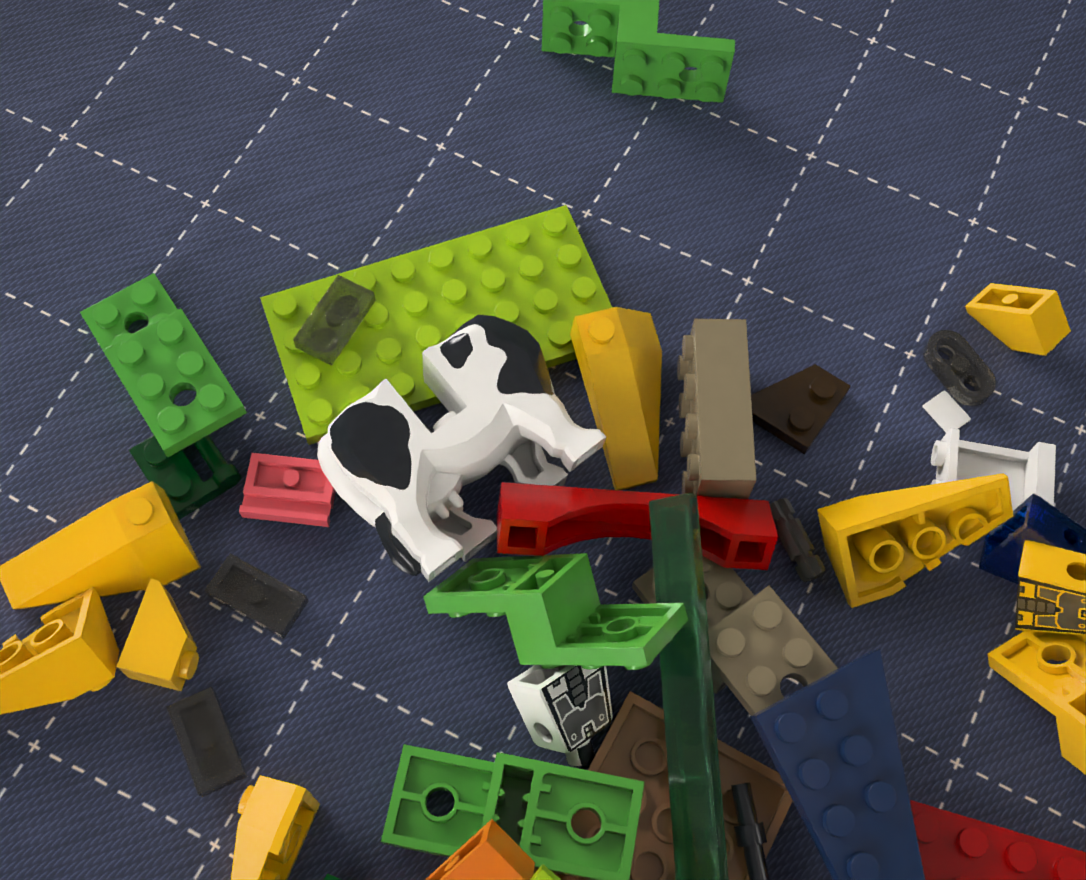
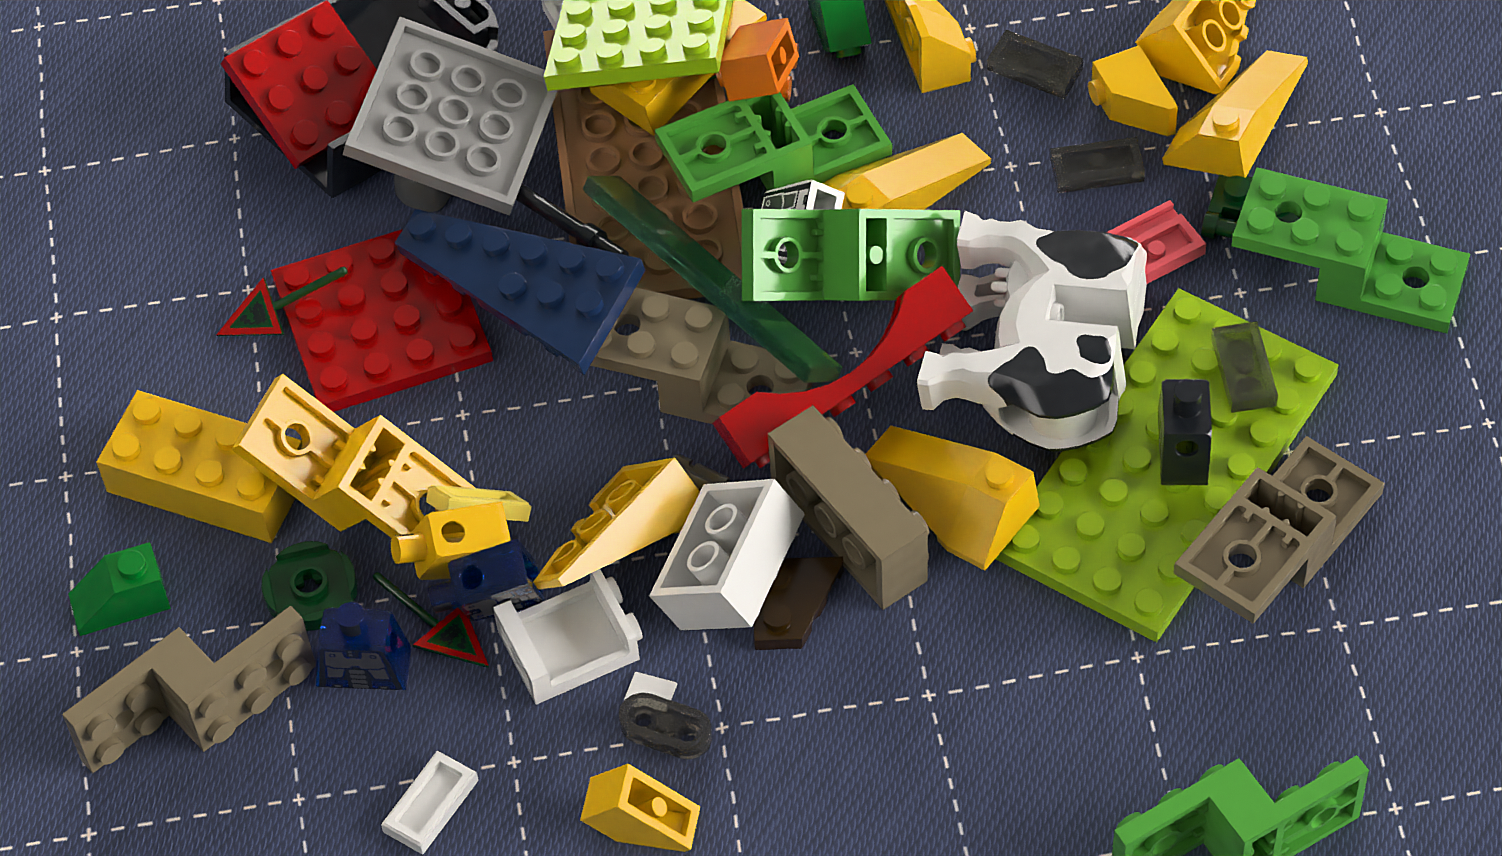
camera: 150 degrees right, 10 degrees down
(430, 284) = (1184, 416): none -> black torso
(434, 187) = (1278, 529): none -> dark tan bracket
(435, 707) = (911, 177): none -> yellow wedge
(840, 438) = (727, 555): none -> white brick
(1013, 629) = (457, 497): none -> light yellow tile

